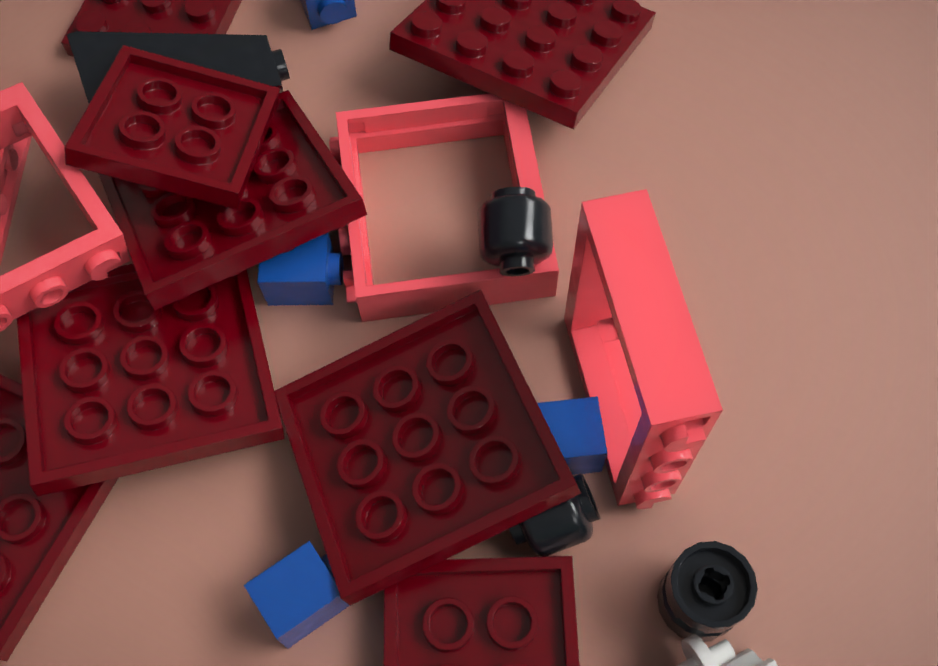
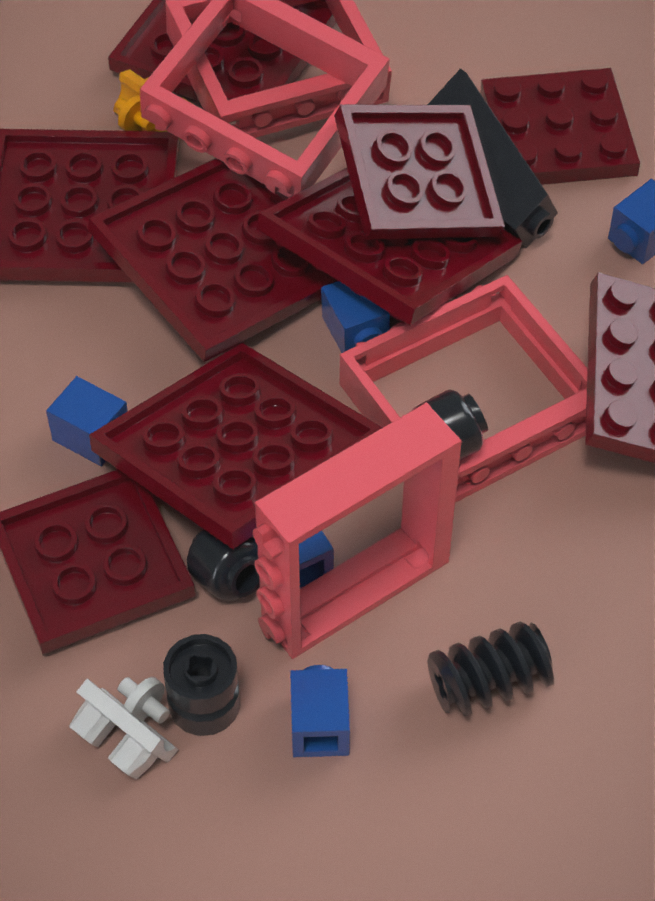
camera: 65 degrees right, 10 degrees down
(766, 486) = (320, 712): none -> blue brick
(771, 313) = (490, 666): none -> black piece

